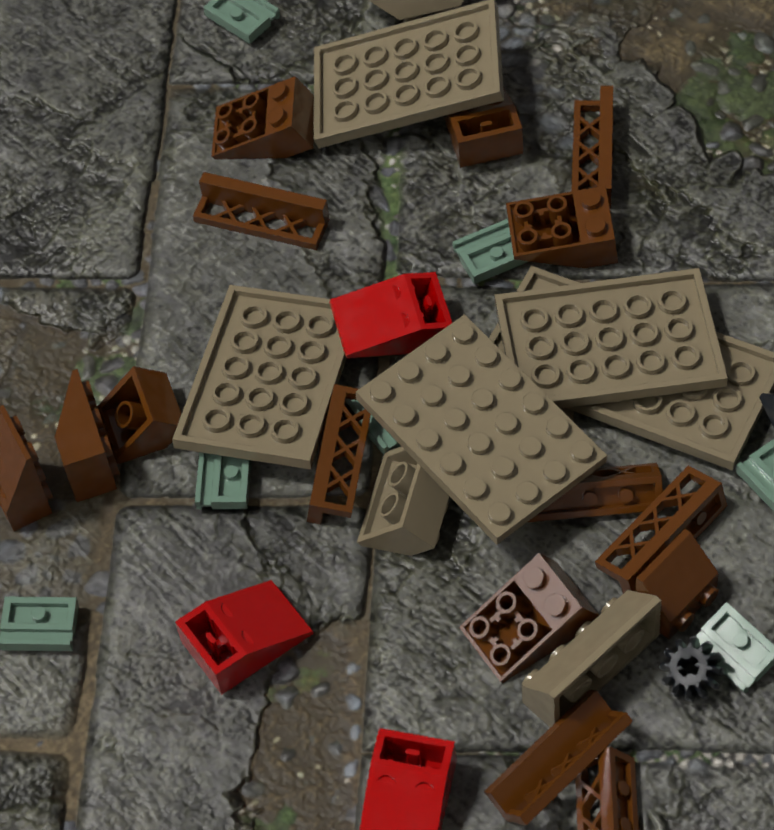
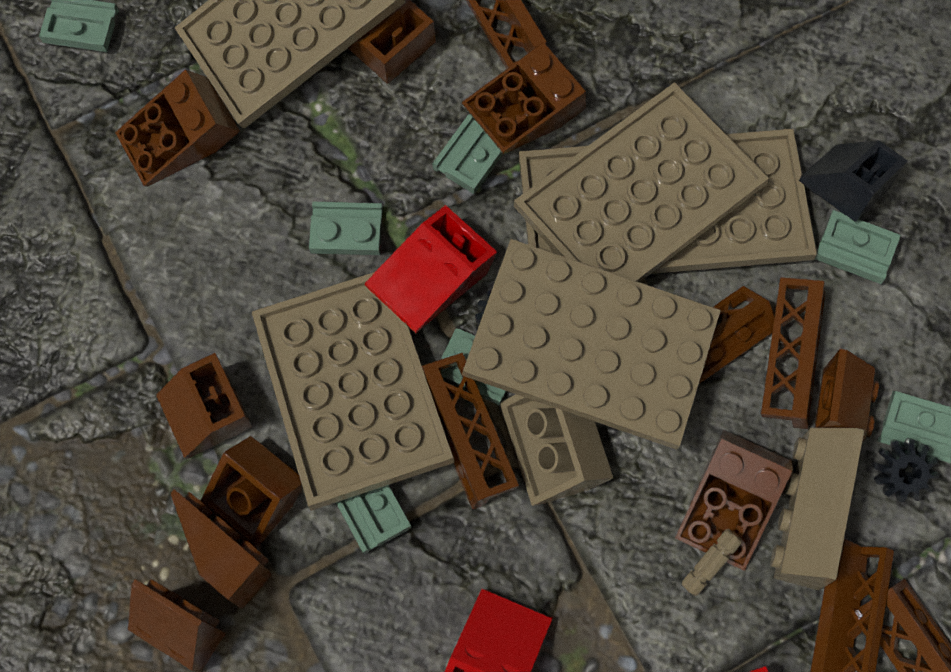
camera: 35 degrees left, 15 degrees up
(146, 334) = (202, 406): none -> reddish brown slope
(269, 202) = (226, 209): reddish brown fence -> none
(349, 260) = (346, 228): none -> sand green plate
(472, 654) = (711, 562): none -> dark tan axle

